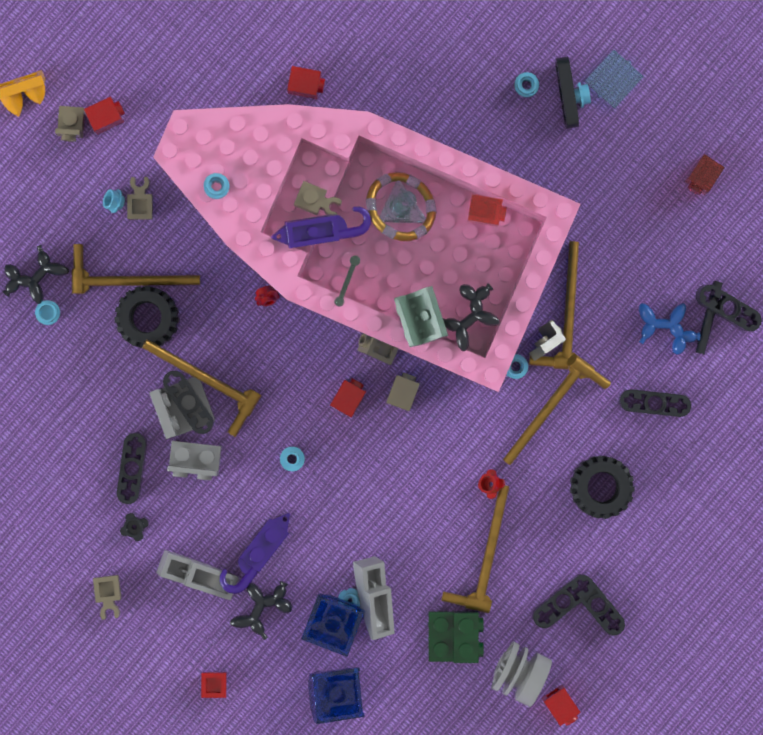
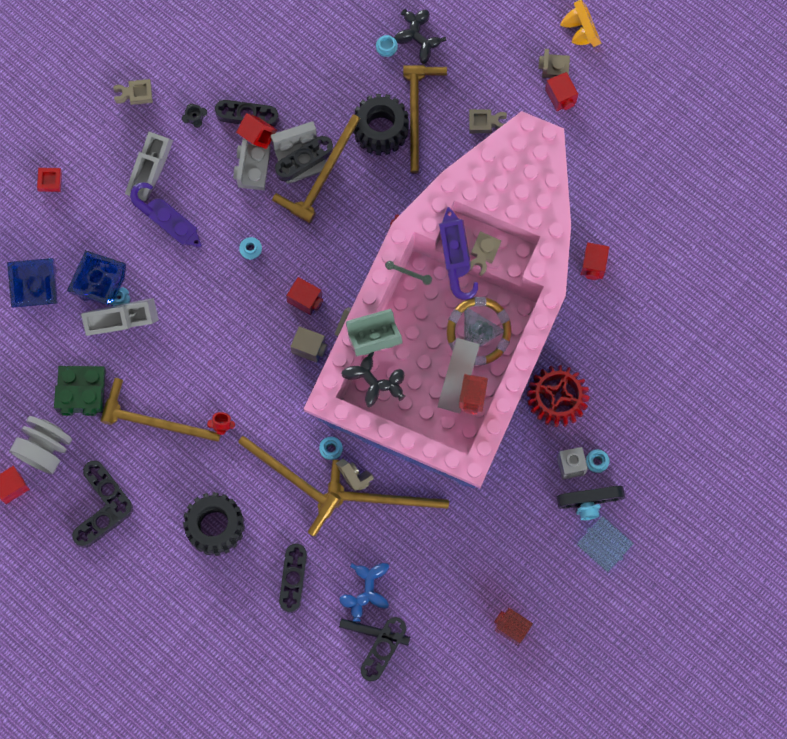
camera: 90 degrees right, 15 degrees down
(113, 200) = (485, 99): medium azure plate -> none
(158, 455) = (256, 131): none -> red brick
(216, 178) = (499, 155): medium azure plate -> none
(262, 601) = (122, 221): black piece -> none
(450, 228) = (461, 363): none -> light grey slope
(468, 129) = (565, 400): none -> red gear
(532, 111) = (572, 463): none -> light grey brick

